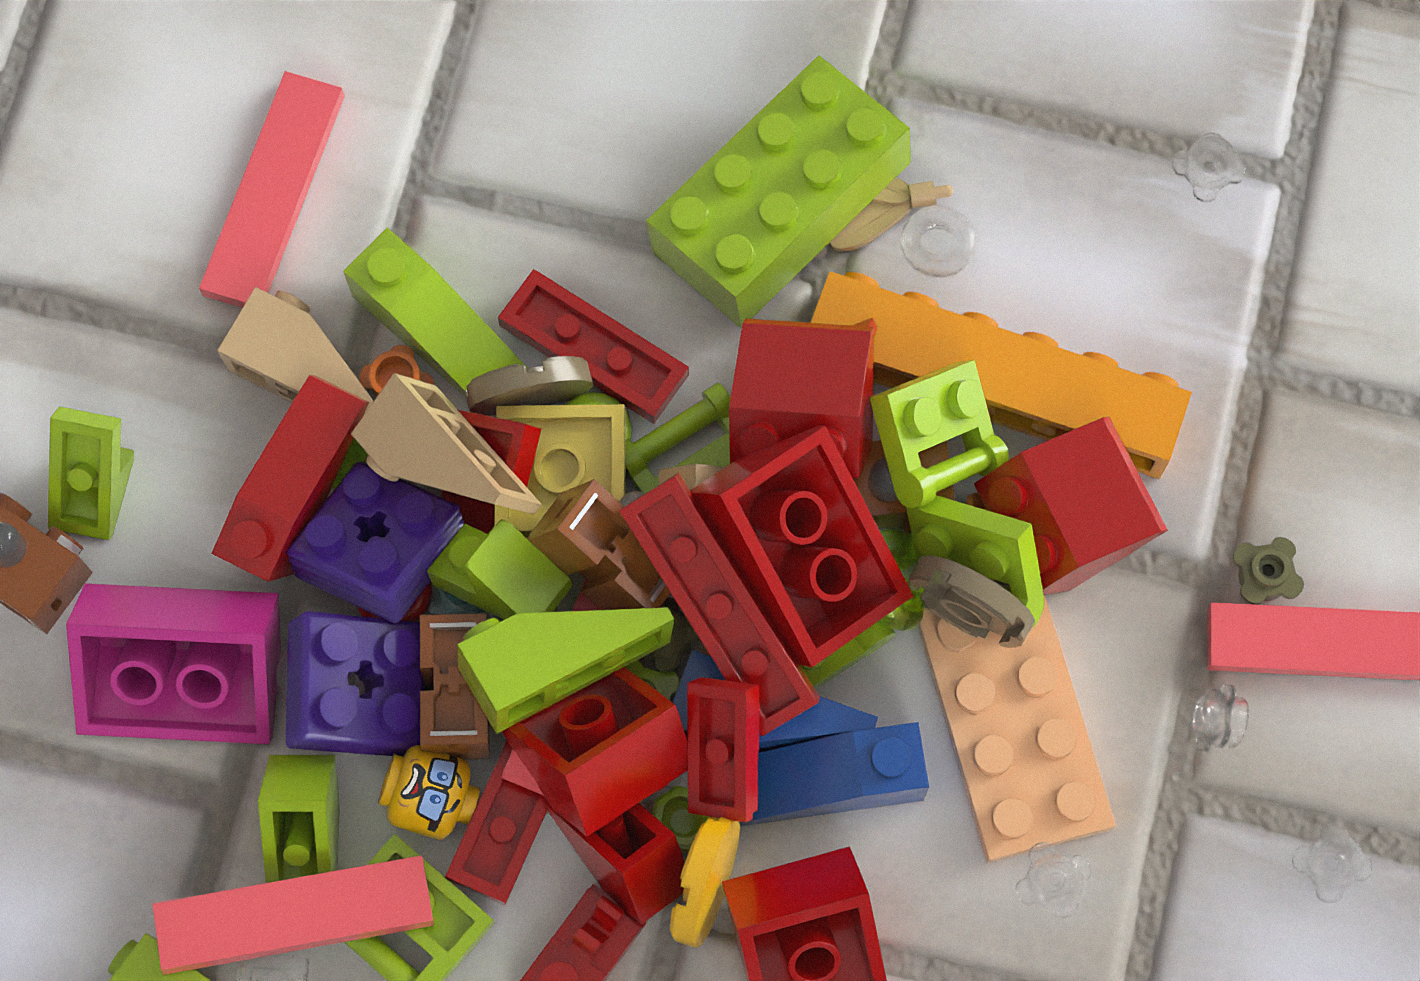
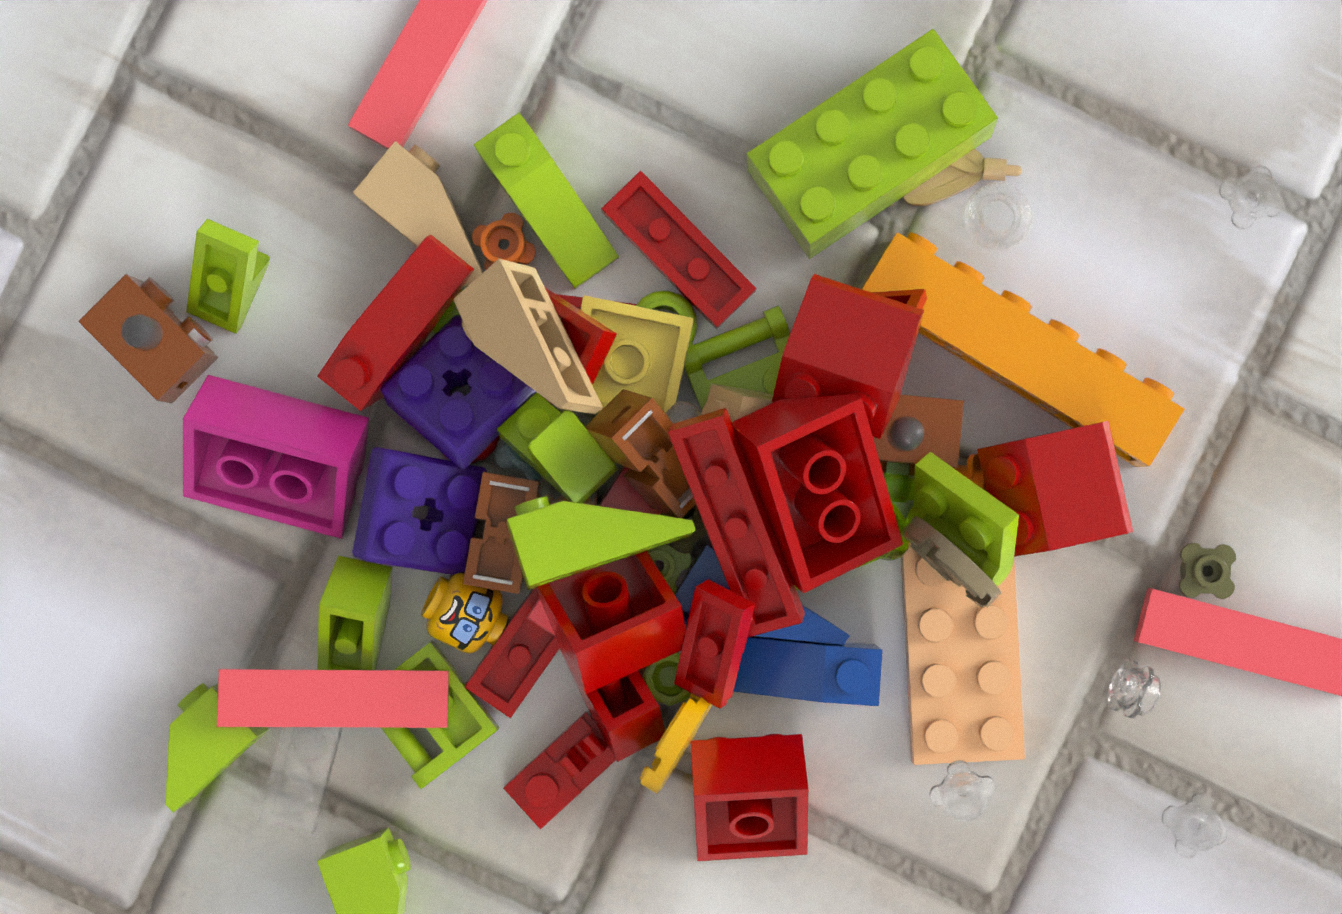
camera: 15 degrees right, 15 degrees up
(517, 386) = (614, 283): dark tan tile -> none
(927, 414) = (951, 390): lime plate -> none

